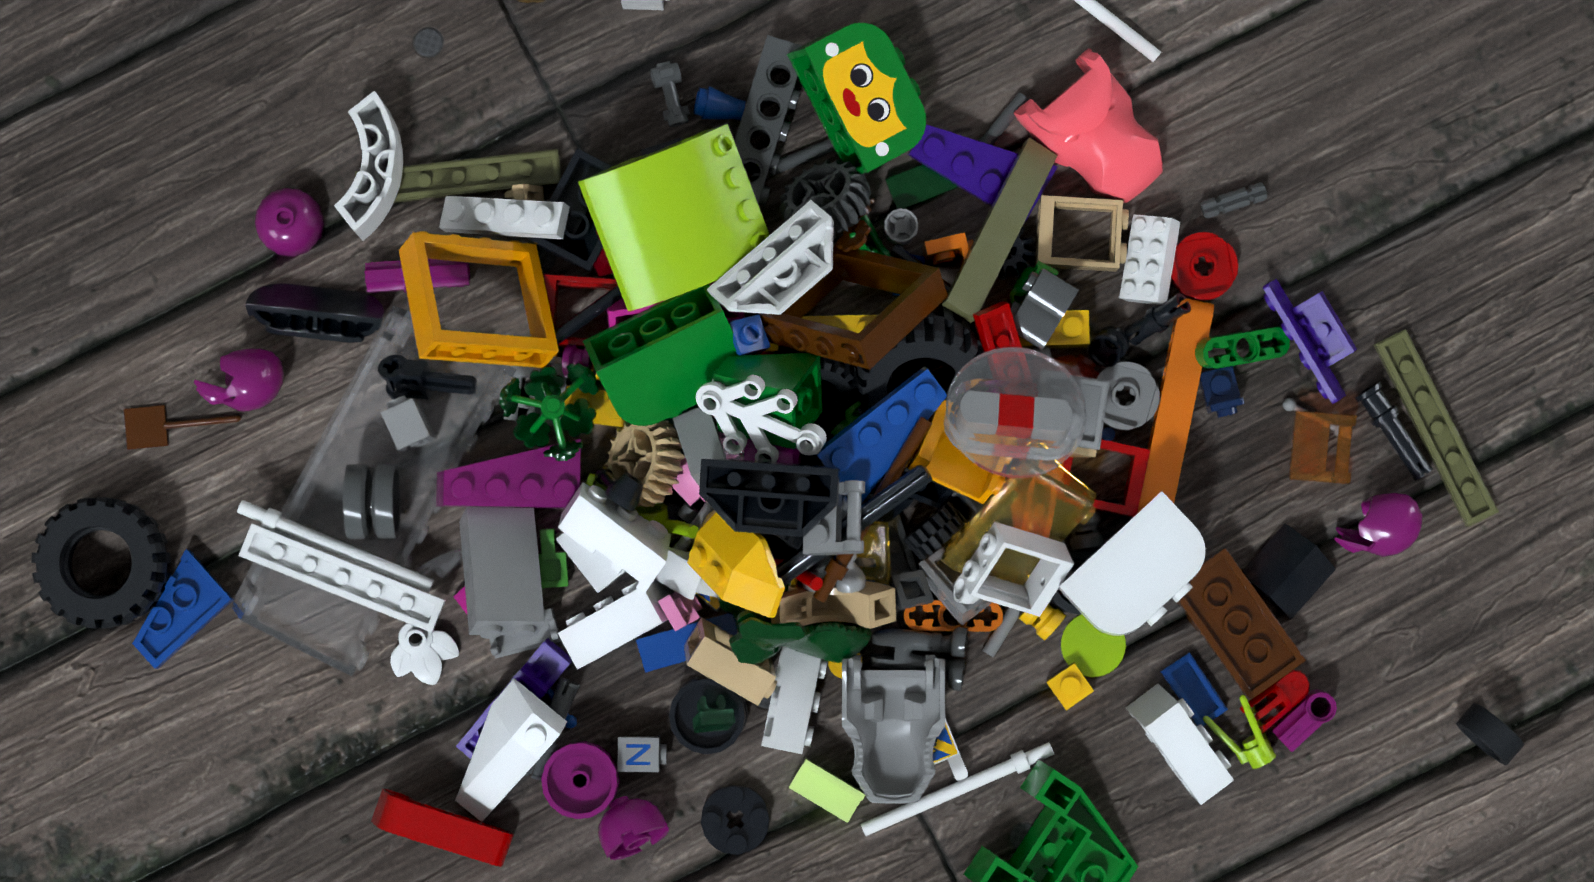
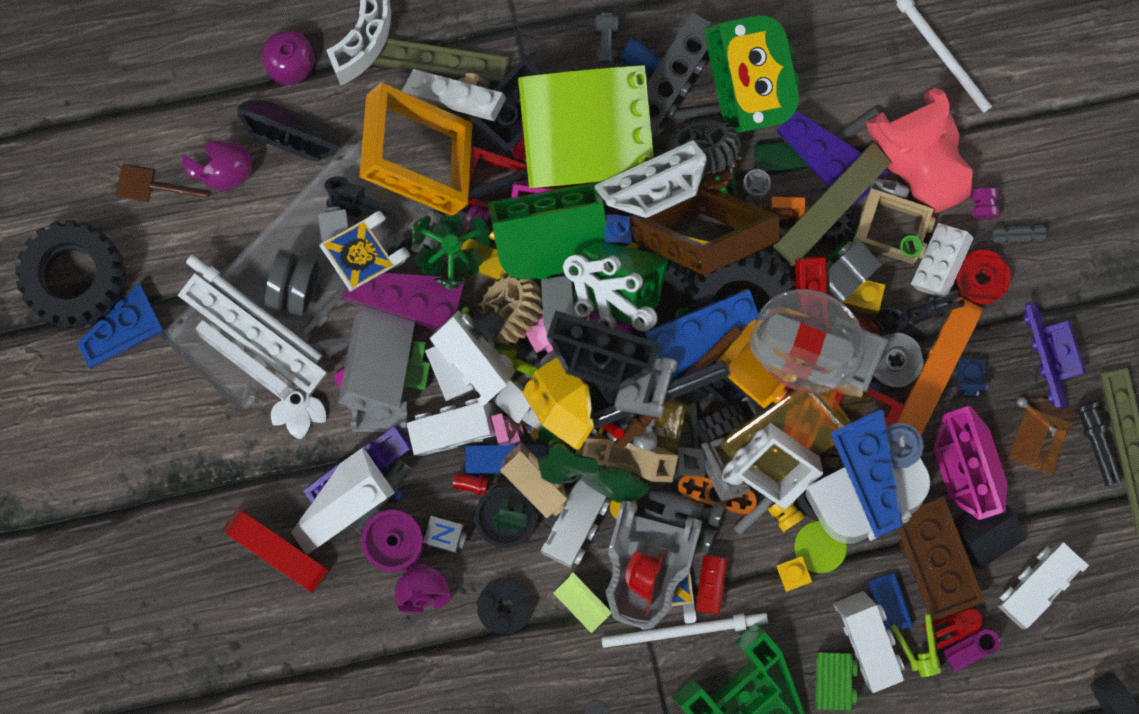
camera: 15 degrees right, 5 degrees down
(328, 605) = (236, 353): none -> white plate
(388, 275) = (396, 125): magenta piece -> none
(444, 448) = (359, 254): none -> flag
(654, 683) = (470, 483): none -> red pin
(889, 740) = (642, 574): none -> red piece
(975, 727) = (711, 585): none -> red axle
(1064, 186) = (890, 187): none -> light grey tile
(1101, 258) = (905, 248): none -> bright green hinge
(1127, 543) = (869, 464): none -> blue wing
(1152, 802) = (834, 681): none -> bright green brick
(1169, 496) = (911, 439): none -> sand blue gear
(1183, 175) = (985, 203): none -> magenta wheel
(1230, 341) = (987, 352): green beam -> none
(1247, 499) = (970, 464): none -> dark pink wedge
(1367, 620) = (1041, 584): none -> white wedge
(1388, 528) = (1075, 514): magenta helmet -> none

